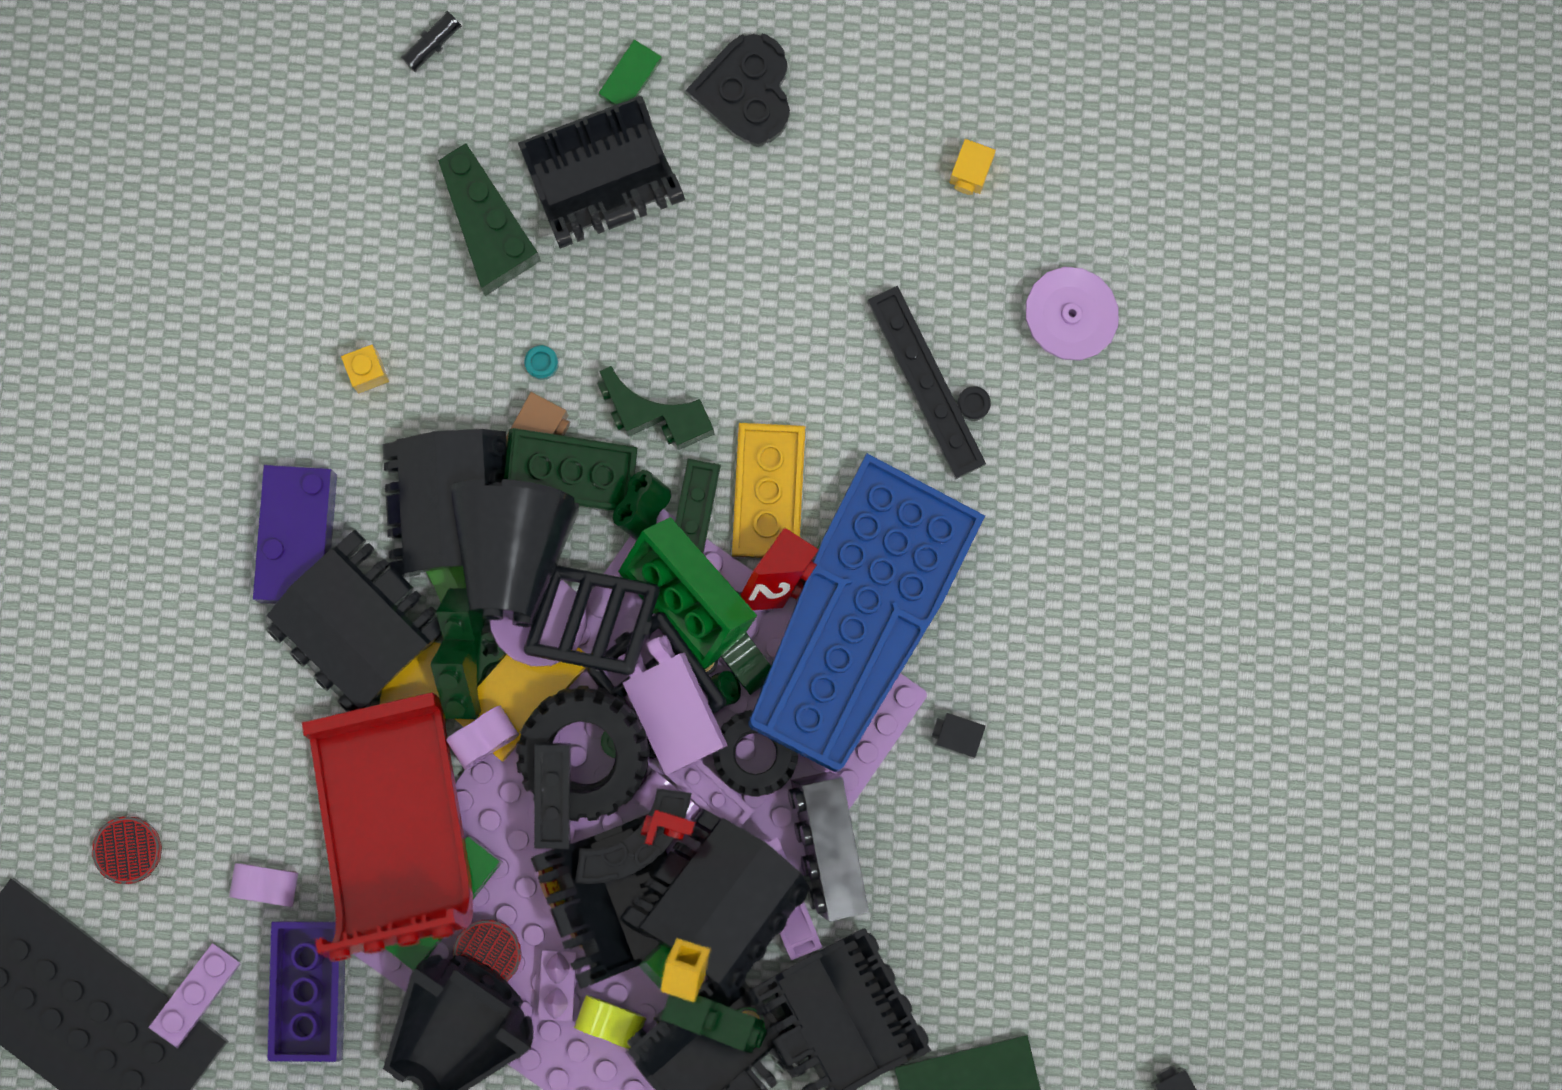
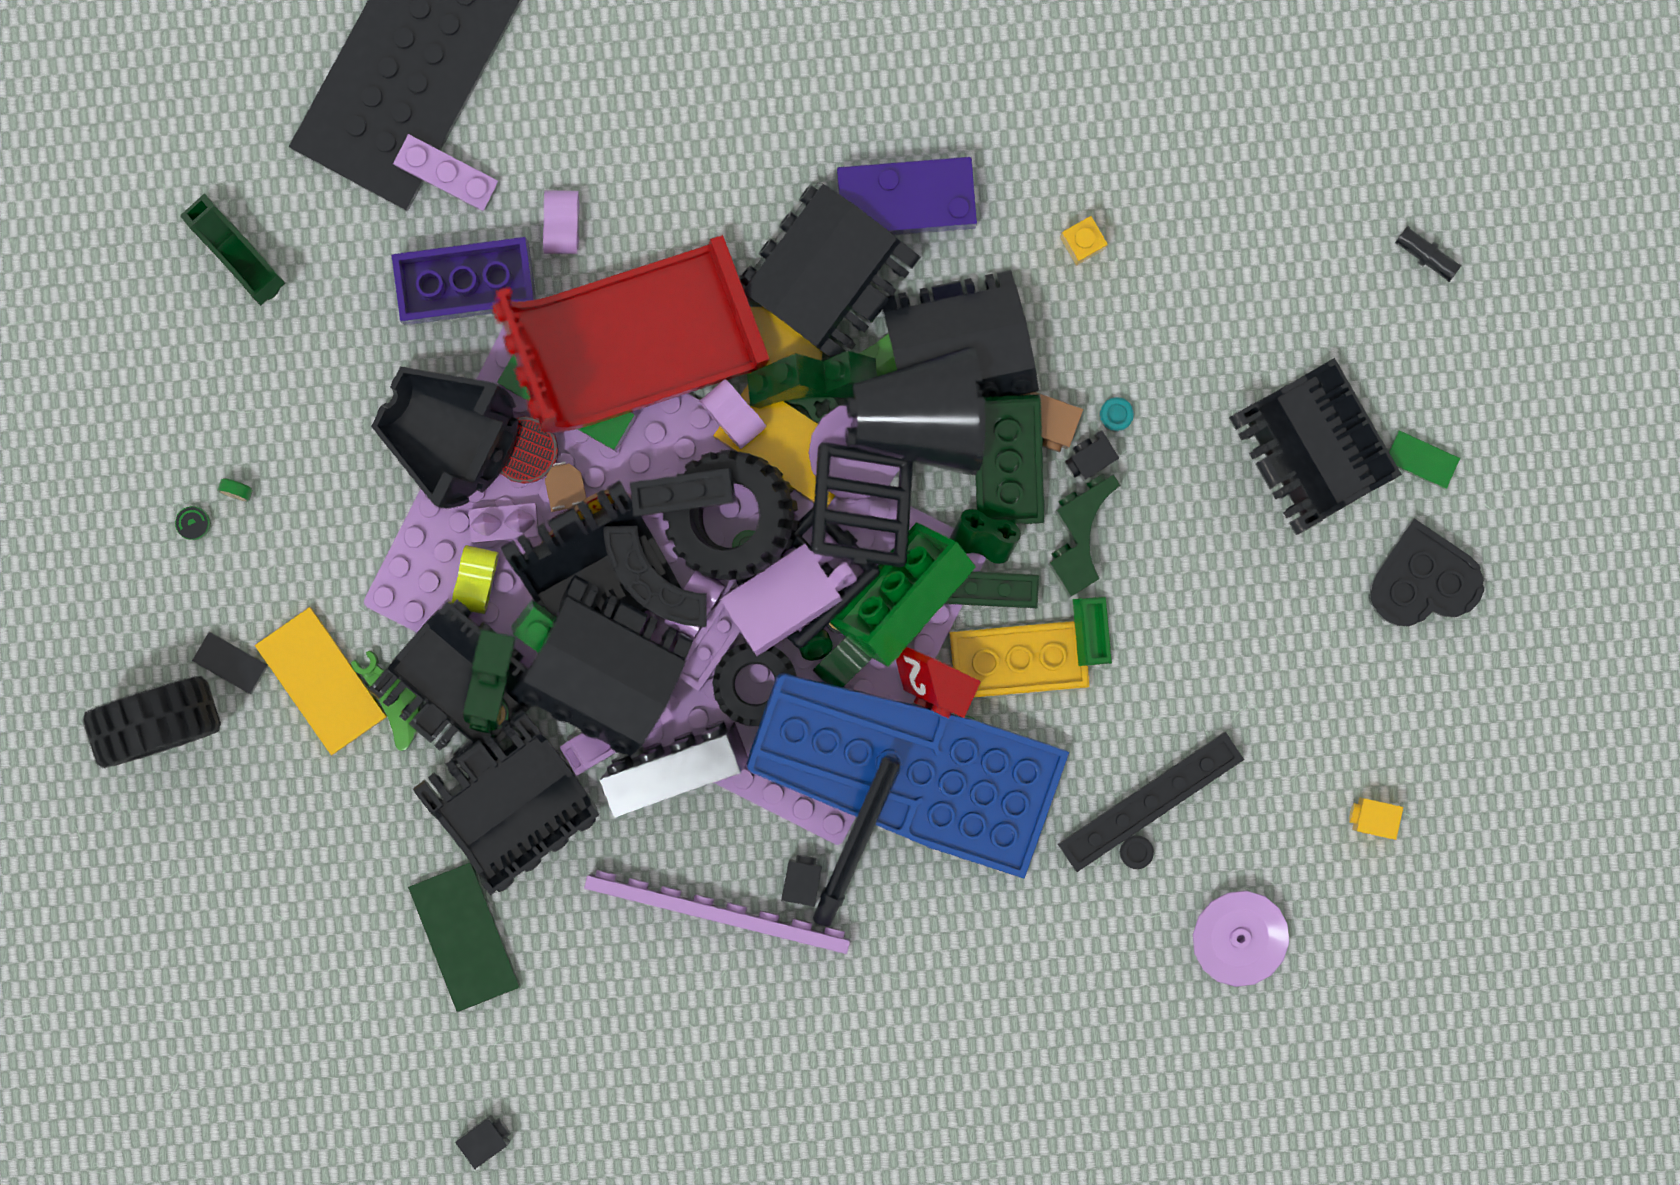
camera: 85 degrees right, 5 degrees up
(126, 850) = (576, 83): tile -> none
(488, 226) = (1244, 341): dark green wedge -> none
(530, 917) = (564, 486): none -> medium nougat piece
(579, 391) = (1091, 457): none -> black brick
(673, 825) = (669, 615): red bracket -> none
(685, 970) = (530, 647): yellow brick -> none
(751, 415) = (1092, 631): none -> green tile
(972, 837) = (703, 907): none -> lavender plate
(975, 705) = (833, 894): none -> black axle

